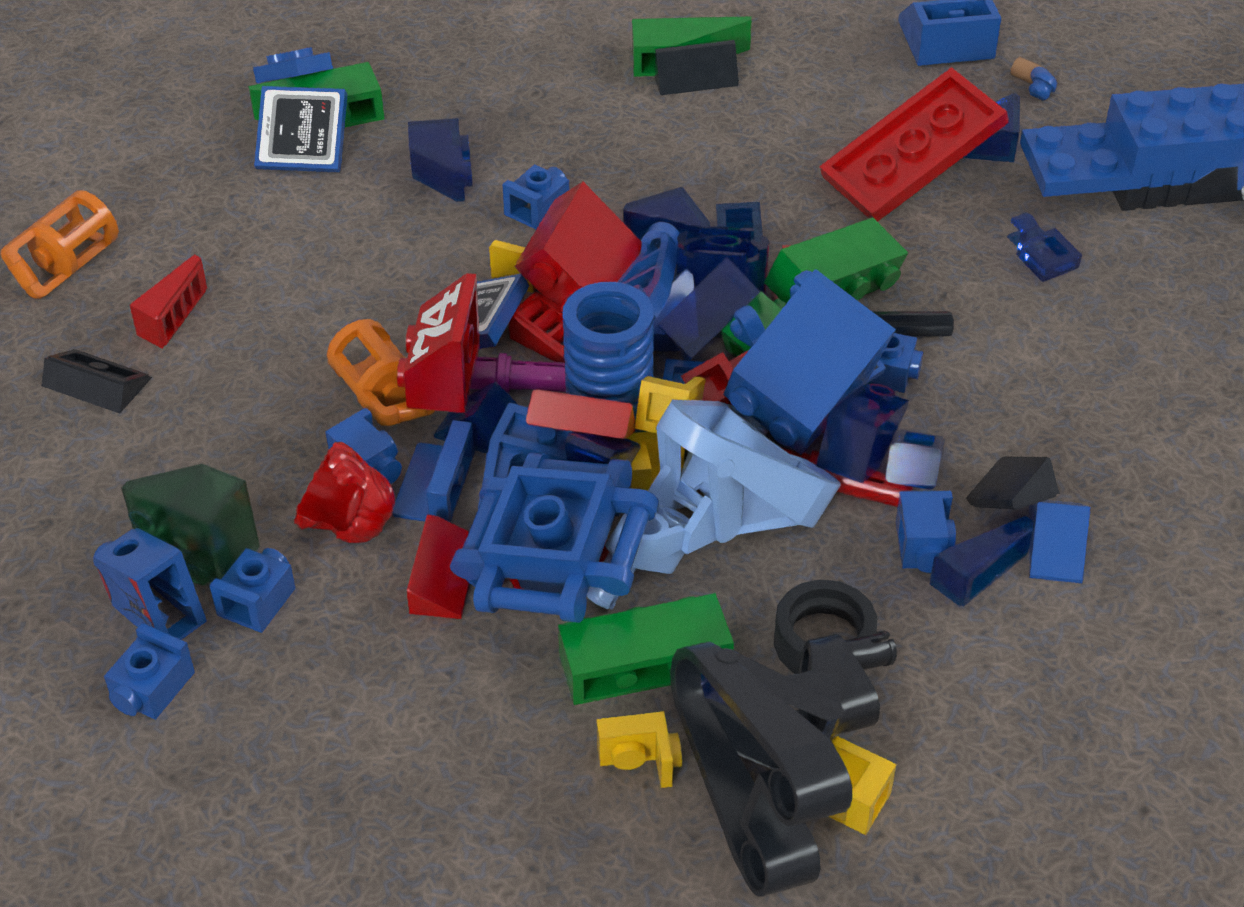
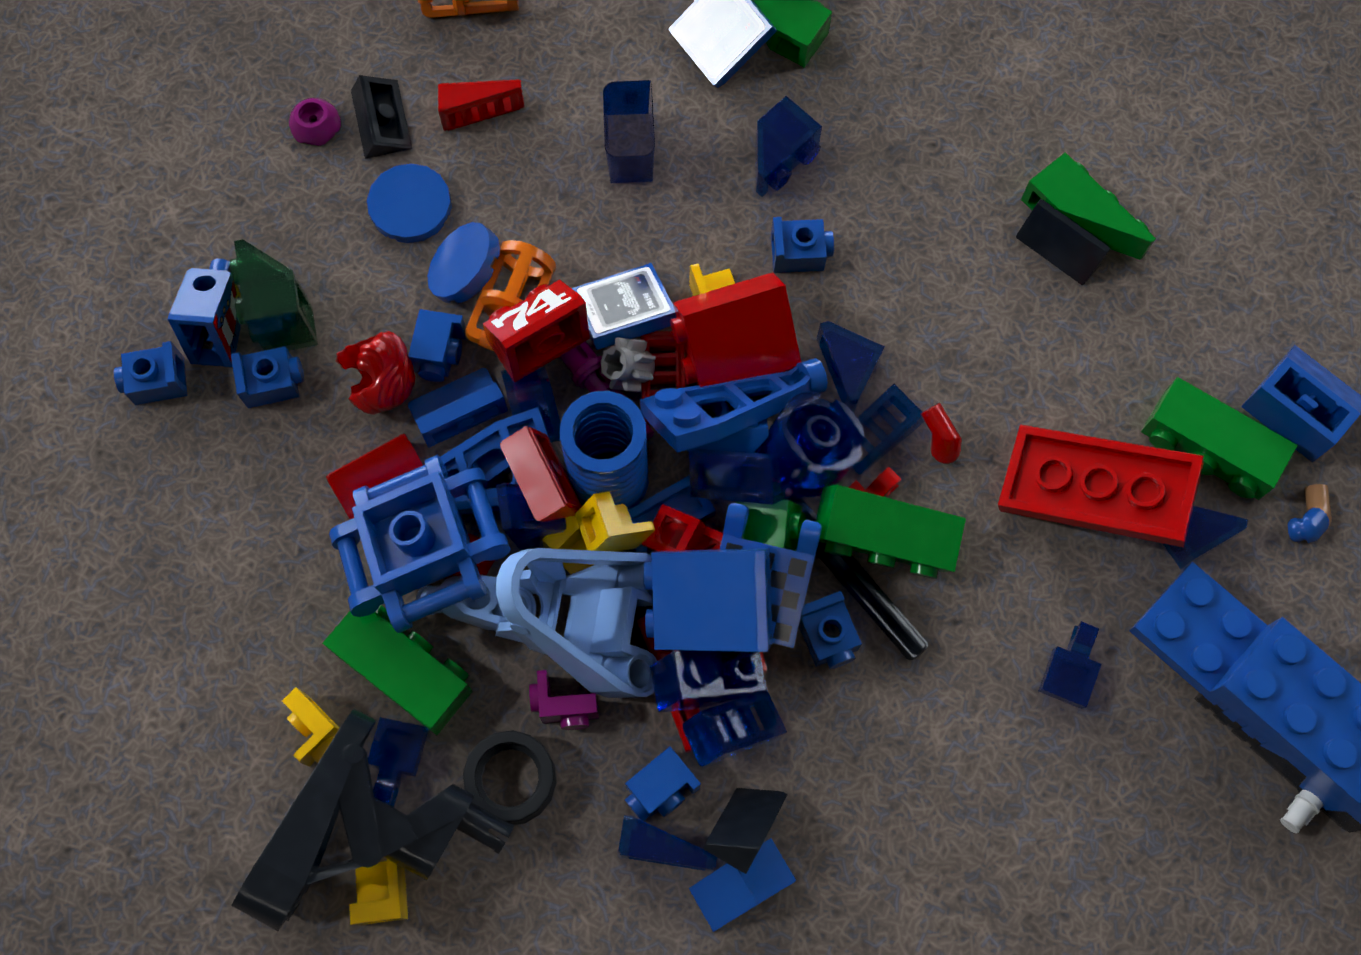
camera: 50 degrees right, 25 degrees up
(40, 421) = (315, 132): none -> magenta plate
(203, 404) = (409, 203): none -> blue tile
(312, 387) = (463, 263): none -> blue tile
(338, 227) = (629, 99): none -> clear blue piece
(543, 338) = (628, 364): none -> light grey gear
(790, 203) = (945, 439): none -> red arm
(791, 560) = (569, 710): none -> magenta bracket
(899, 79) = (1231, 442): none -> green brick

